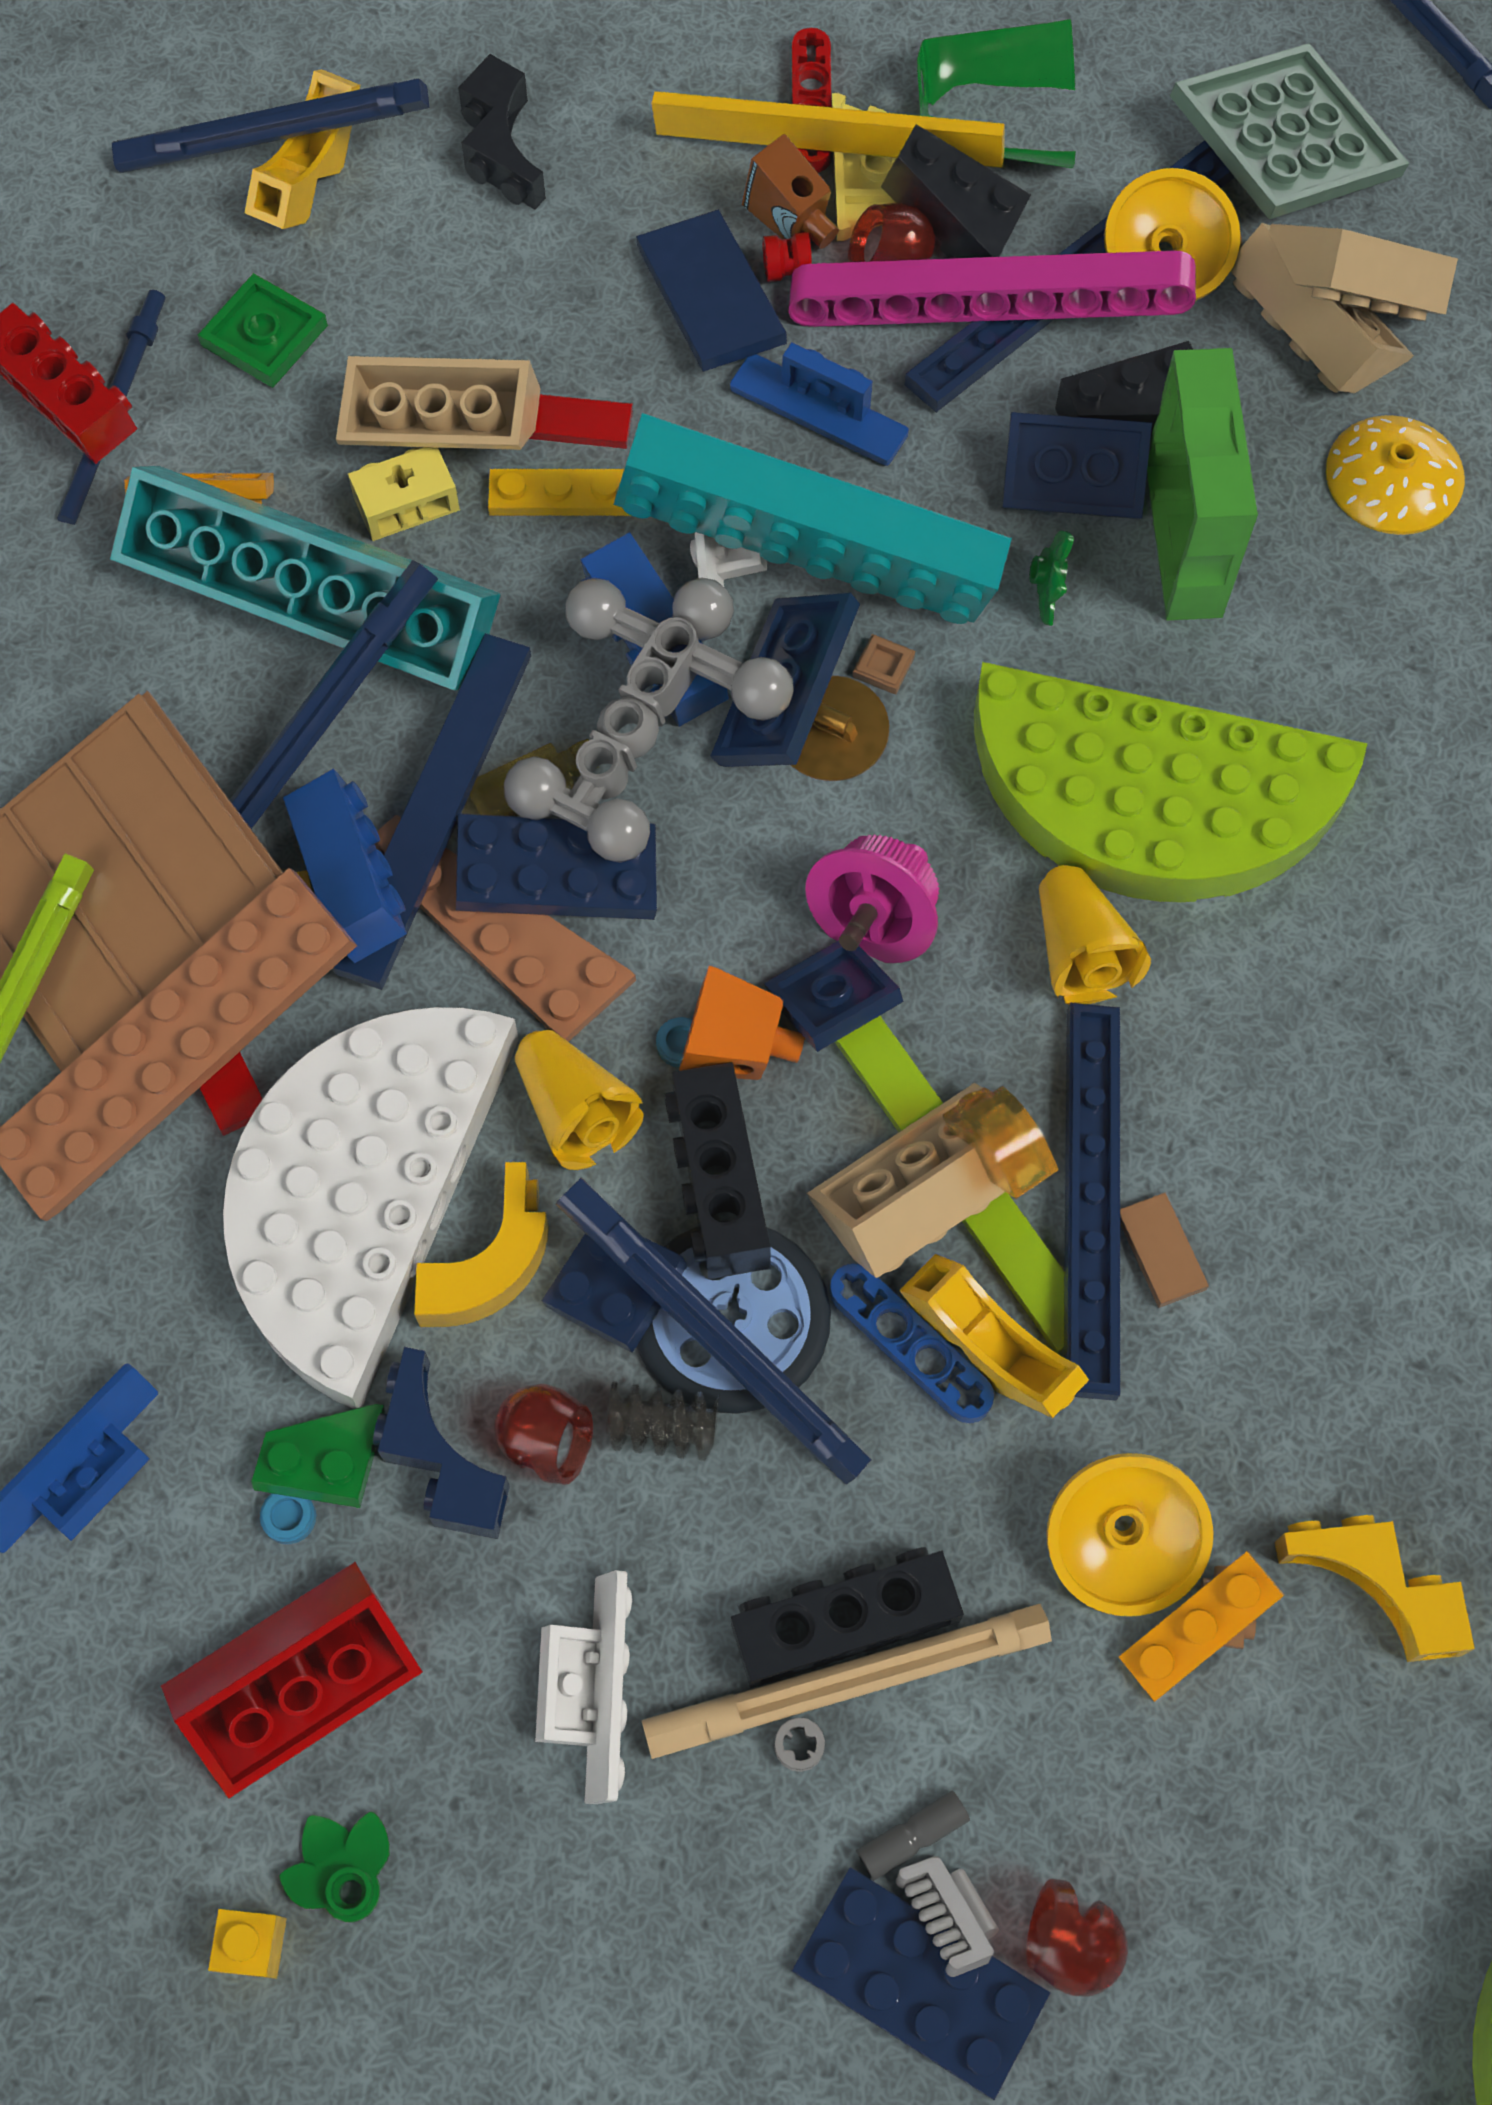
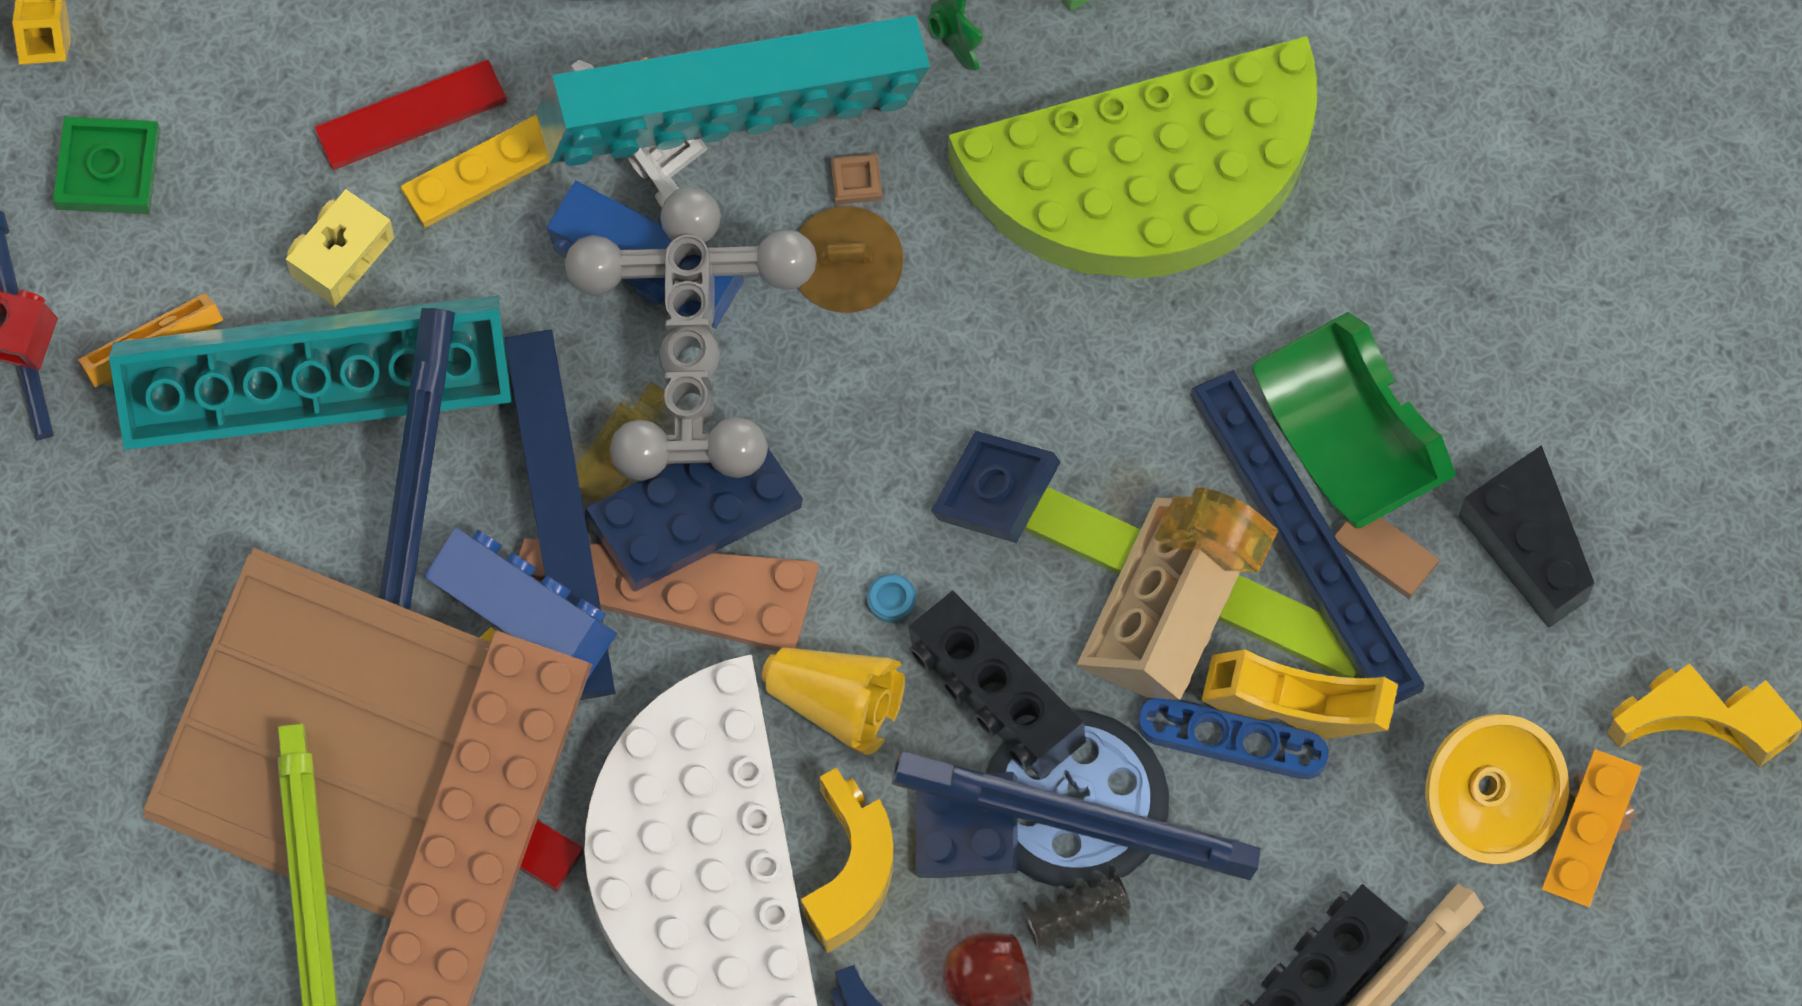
camera: 30 degrees left, 0 degrees up
(438, 403) = (326, 154): tan slope -> none
(737, 1026) = (933, 558): orange torso -> none
(807, 641) = (788, 193): dark blue plate -> none
(876, 898) = (986, 385): dark pink piece -> none
(1087, 939) = (1174, 325): yellow cone -> none
(1197, 1113) = (1347, 424): none -> green panel
(1309, 1312) = (1531, 536): none -> black wedge

